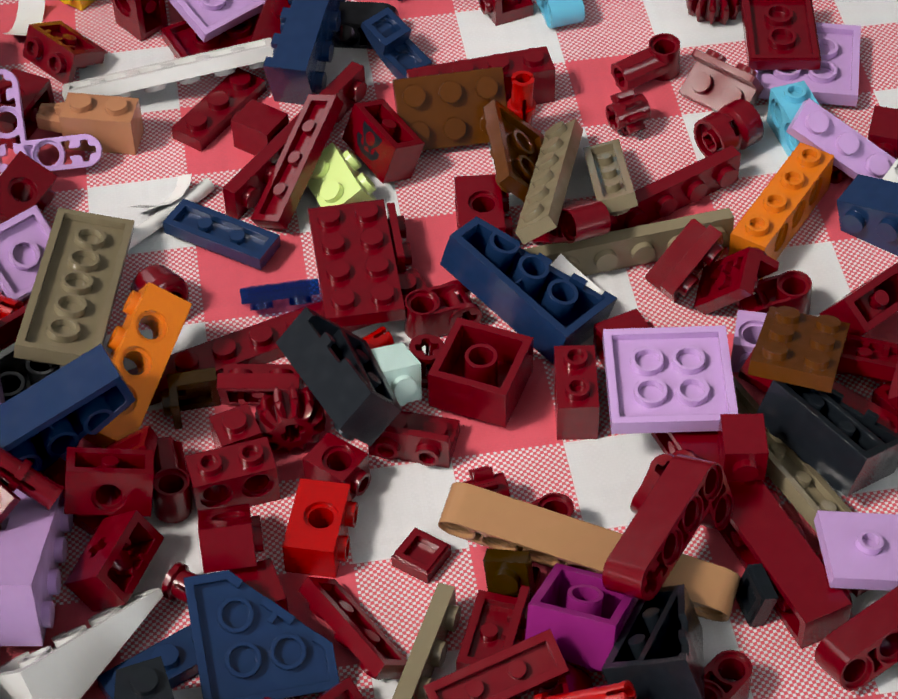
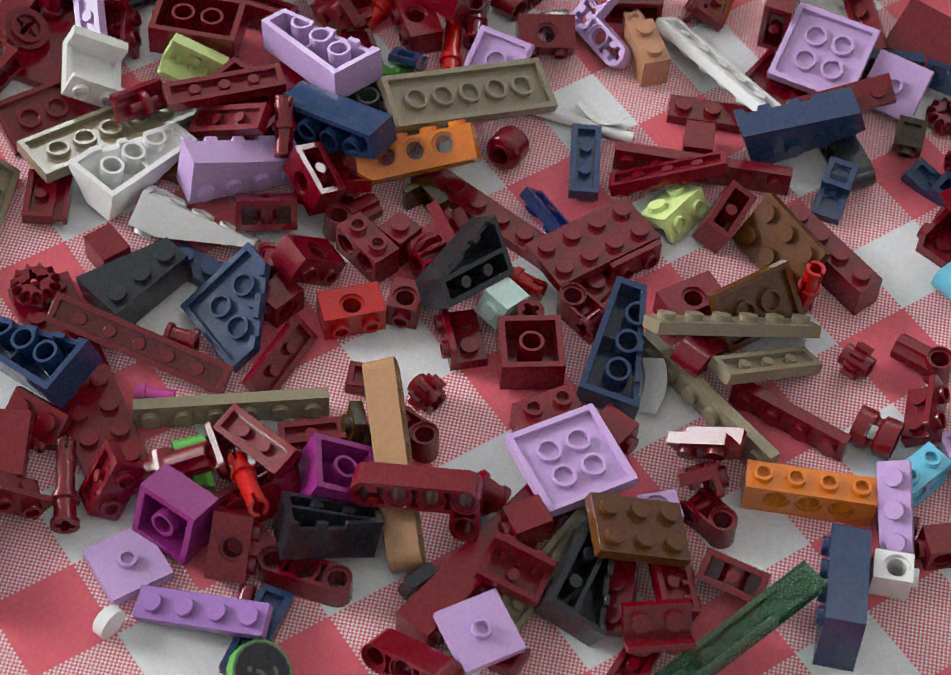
camera: 60 degrees right, 5 degrees up
(800, 481) = (515, 569): none -> dark red bracket

